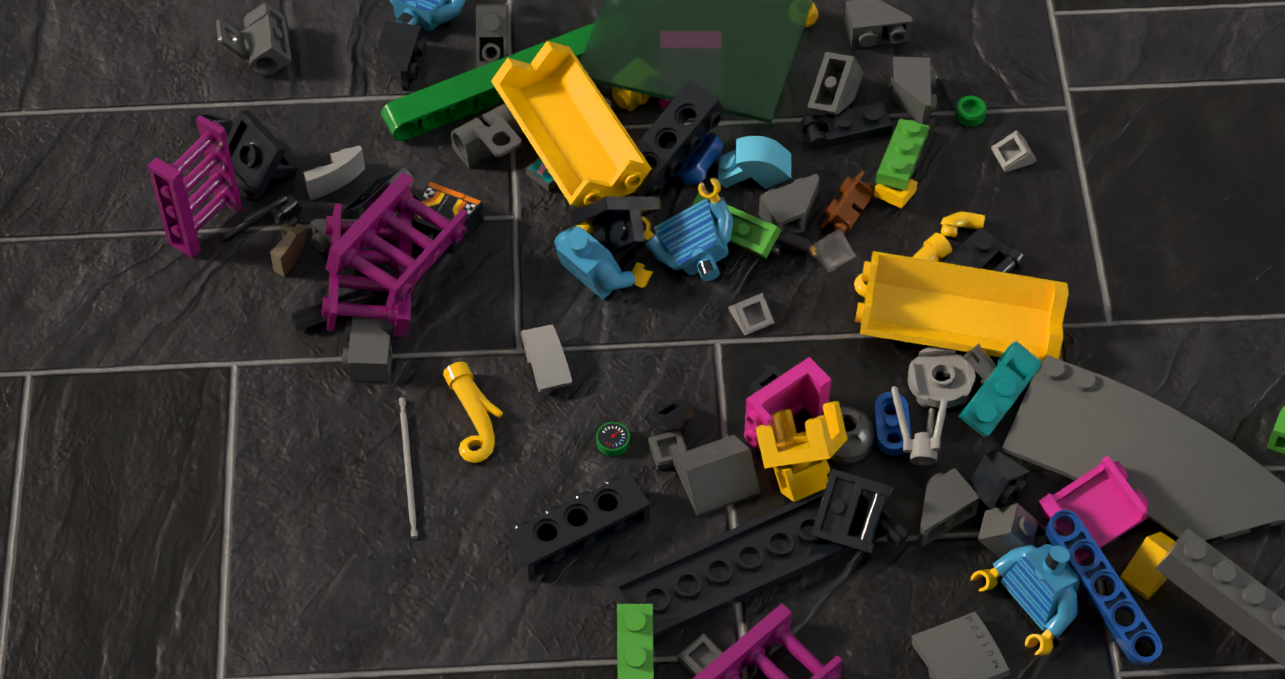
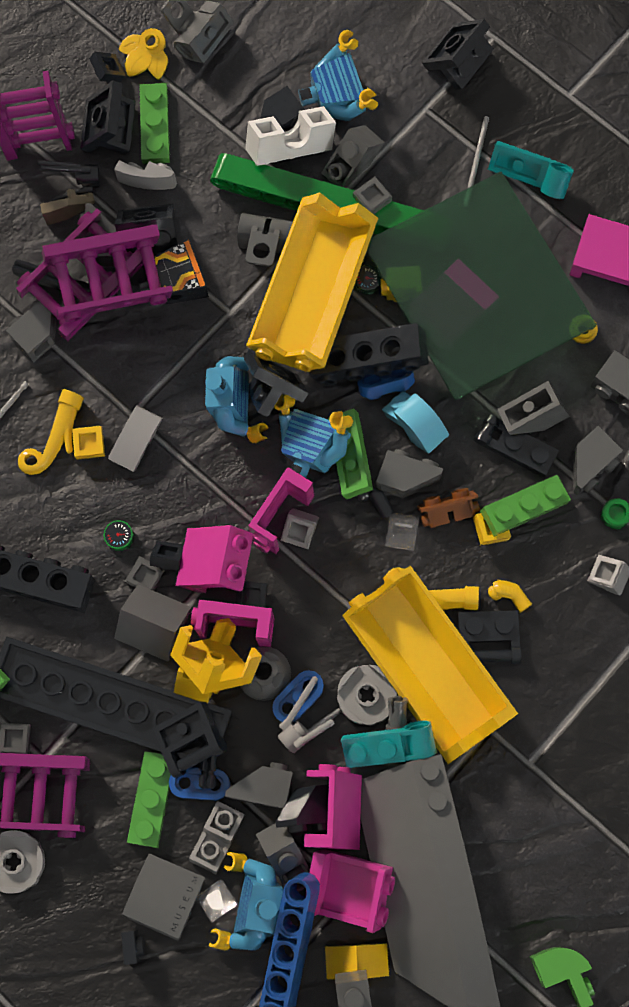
camera: 50 degrees right, 20 degrees up
(232, 95) = (145, 57): none -> yellow plate
(296, 134) = (154, 123): none -> bright green plate
(424, 60) = (311, 135): none -> white arch
(509, 393) = (88, 442): none -> yellow plate
(540, 35) = (372, 195): none -> dark grey tile
(717, 372) = (214, 558): none -> dark pink panel
(721, 281) = (289, 484): none -> dark pink panel
(866, 600) = (150, 801): none -> bright green plate
(890, 555) = (194, 790): none -> blue plate
(948, 578) = (216, 837): none -> light grey slope
(1005, 620) = (217, 901): none -> clear slope
(1043, 479) = (343, 809): none -> dark pink panel

